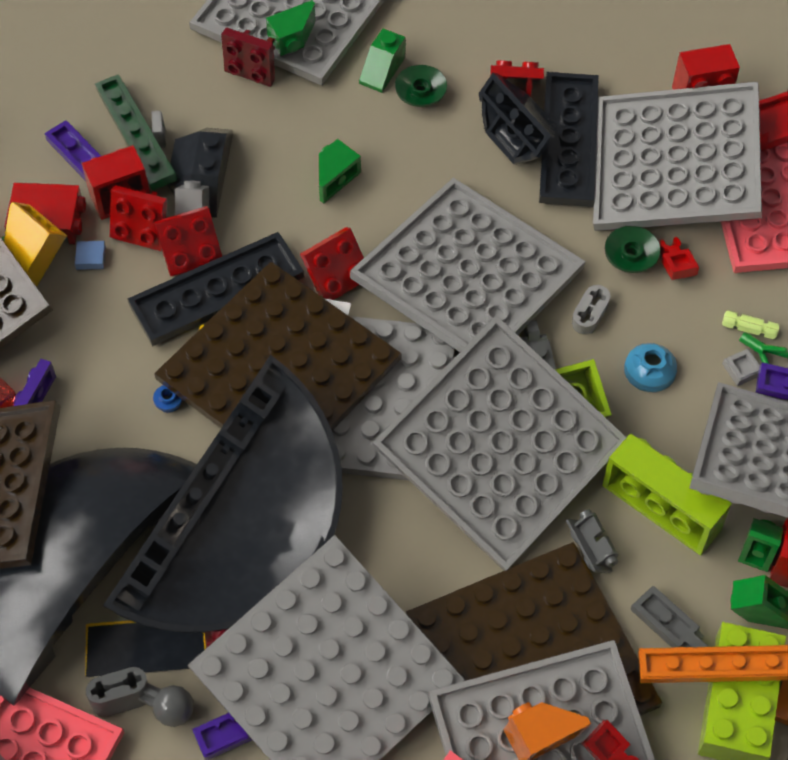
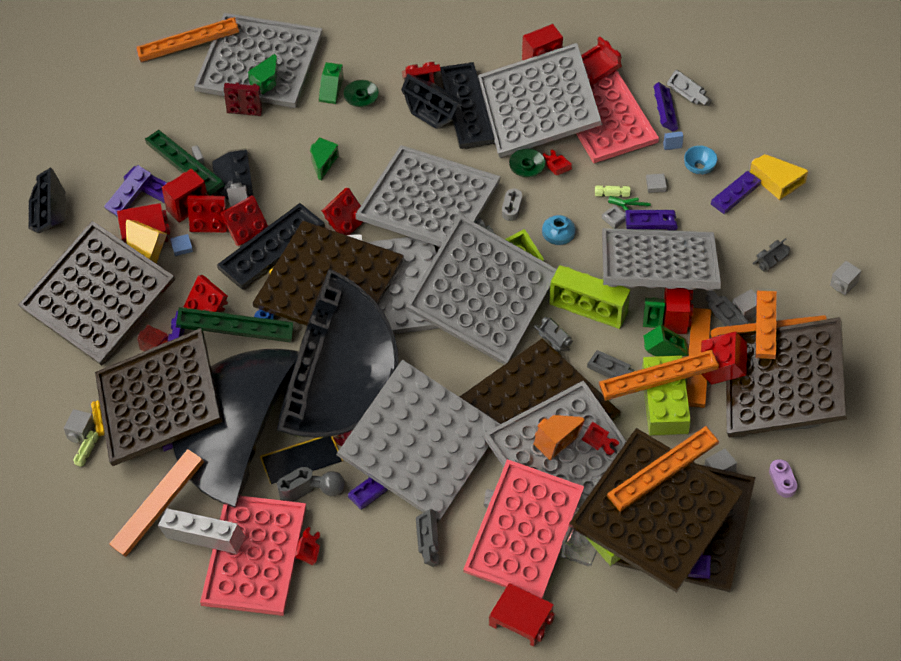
camera: 15 degrees left, 5 degrees down
(44, 155) = (129, 190): none -> plate
(89, 354) = (206, 296): none -> red plate
(116, 402) = (234, 324): none -> dark green plate

